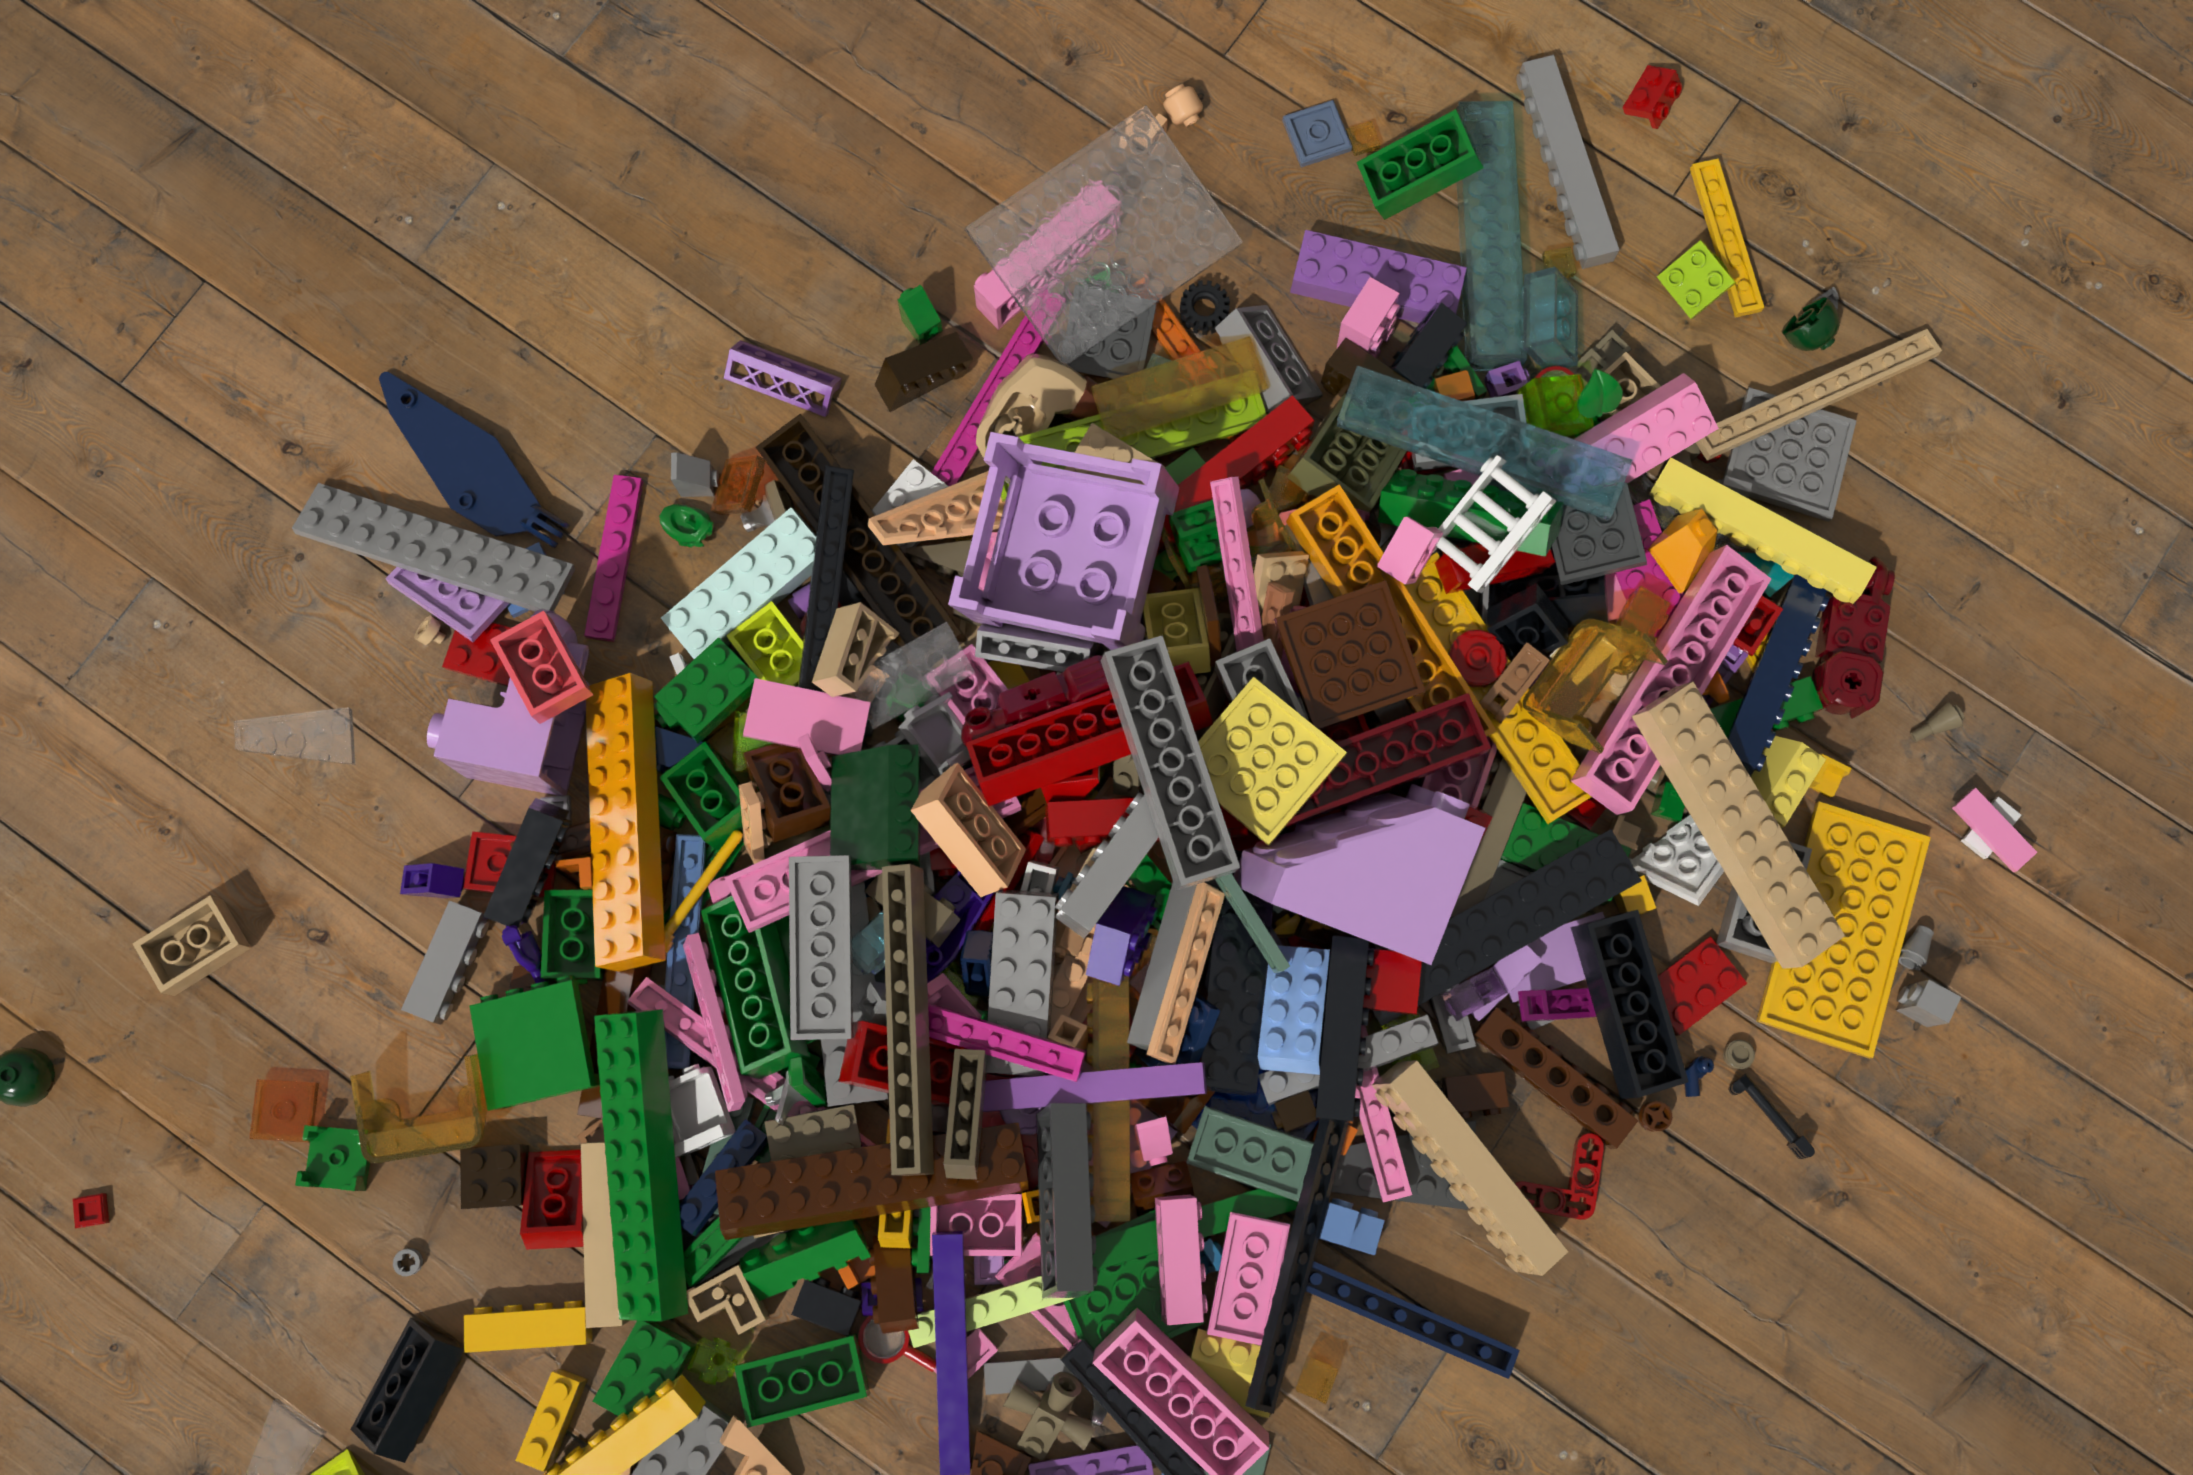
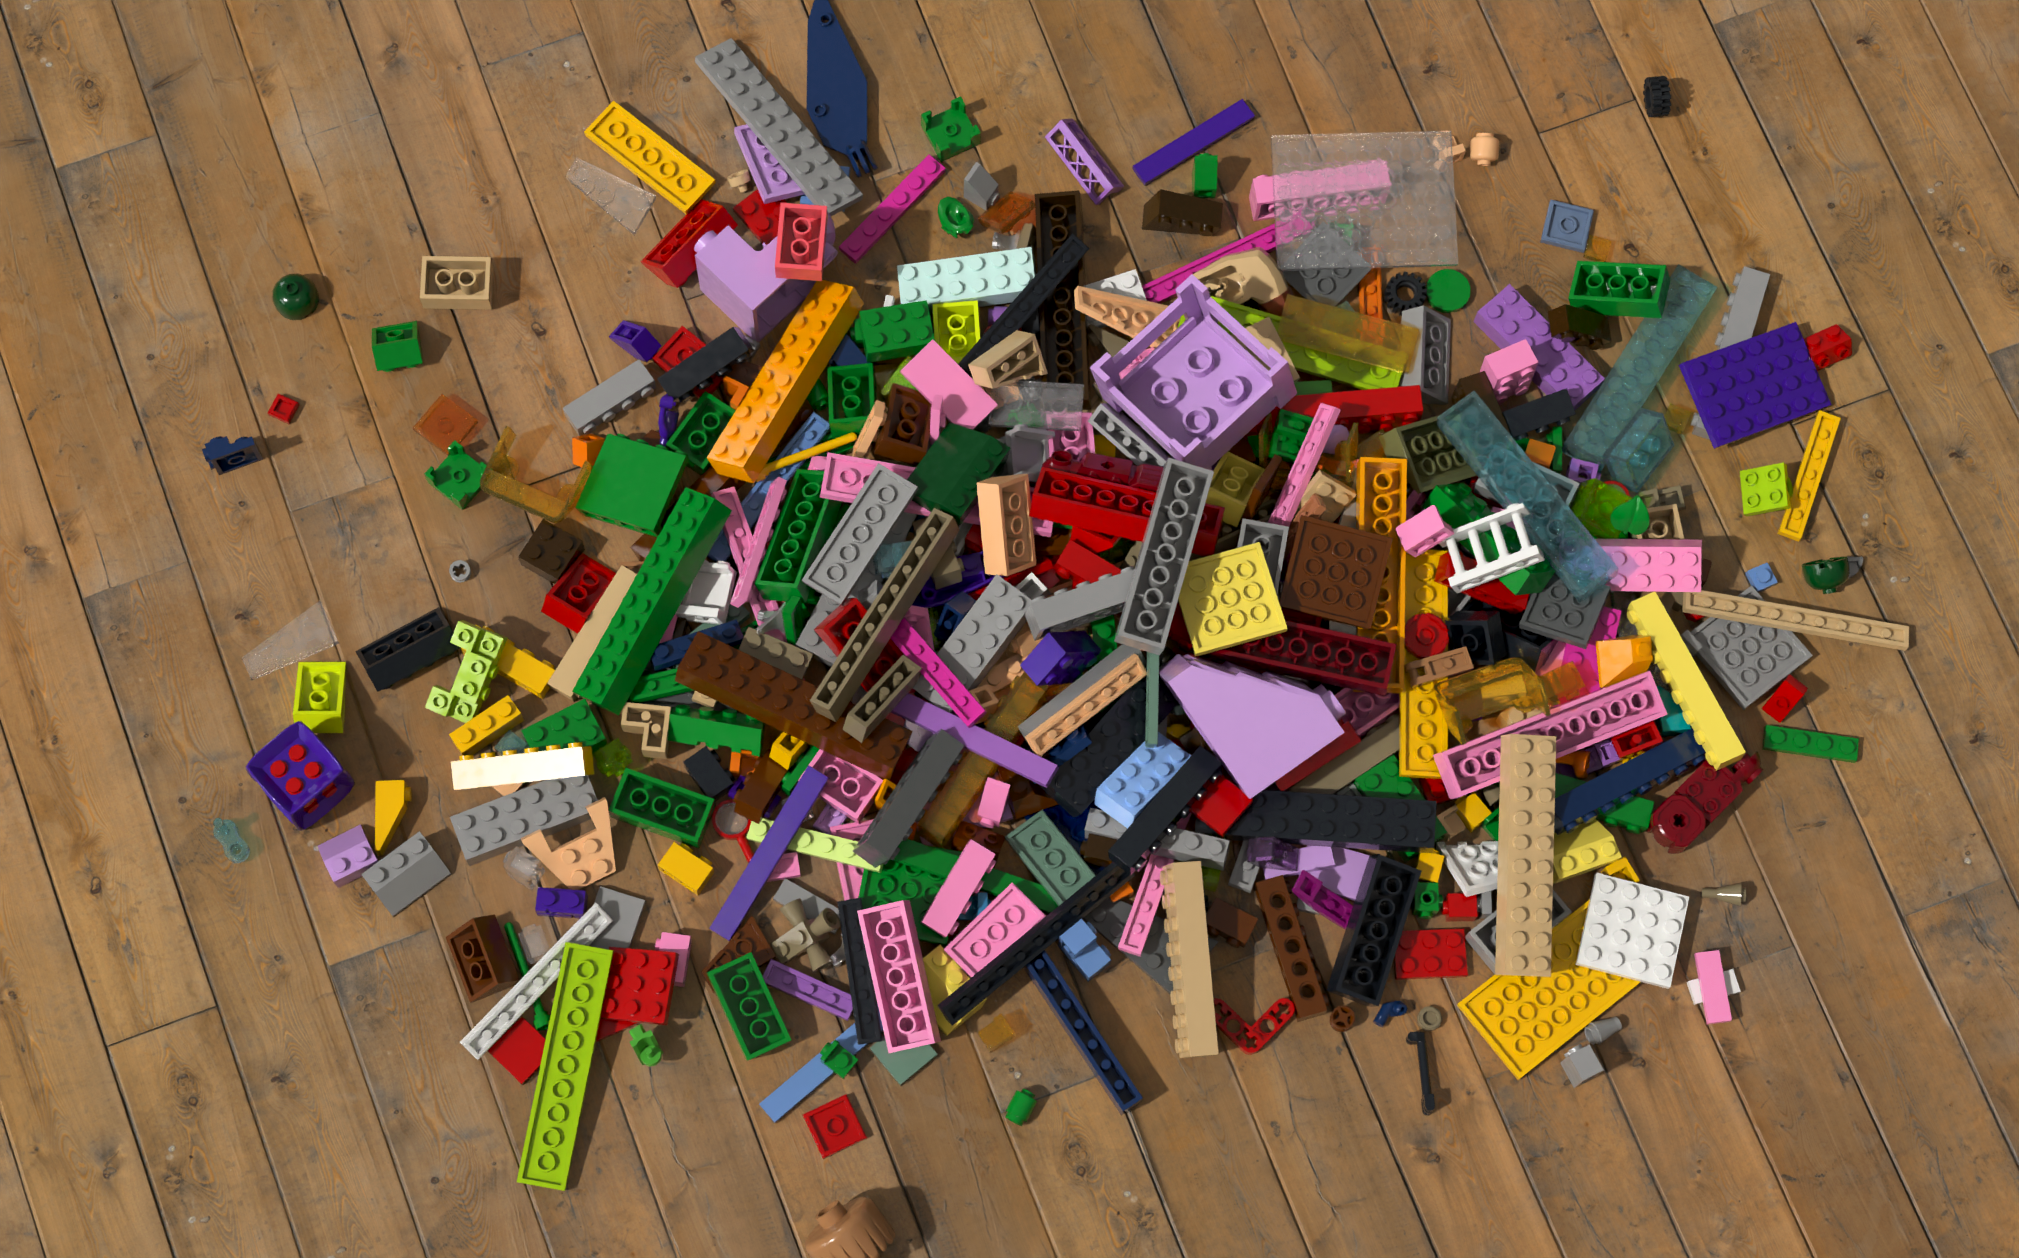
camera: 30 degrees right, 5 degrees down
(59, 1312) = (229, 457): none -> dark blue plate
(171, 1059) = (397, 346): none -> green slope
(315, 669) = (649, 157): none -> yellow plate
(409, 760) = (674, 255): none -> red slope
(457, 1035) = (586, 448): none -> orange panel
(499, 1375) = (474, 674): none -> lime bracket
(591, 1419) = (511, 742): none -> clear light blue plate
(620, 434) = (950, 130): none -> green panel
(871, 1425) = (686, 868): none -> yellow brick
(881, 286) = (1193, 142): none -> dark purple tile
(1244, 276) = (1448, 291): none -> green tile
(1395, 1442) = (1020, 1107): none -> green brick
(1406, 229) = (1579, 326): none -> dark brown brick
(1616, 179) = (1754, 385): none -> dark purple plate
(1644, 811) = (1471, 811): none -> yellow brick
(1658, 931) = (1426, 900): none -> green brick
(1691, 919) = (1459, 907): none -> red brick
(1716, 899) = (1484, 905): none -> light grey plate
(1750, 372) = (1761, 577): none -> medium blue plate
(1861, 481) = (1784, 698): none -> red brick
(1879, 825) = (1632, 930): none -> white plate
(1912, 512) = (1810, 744): none -> green plate

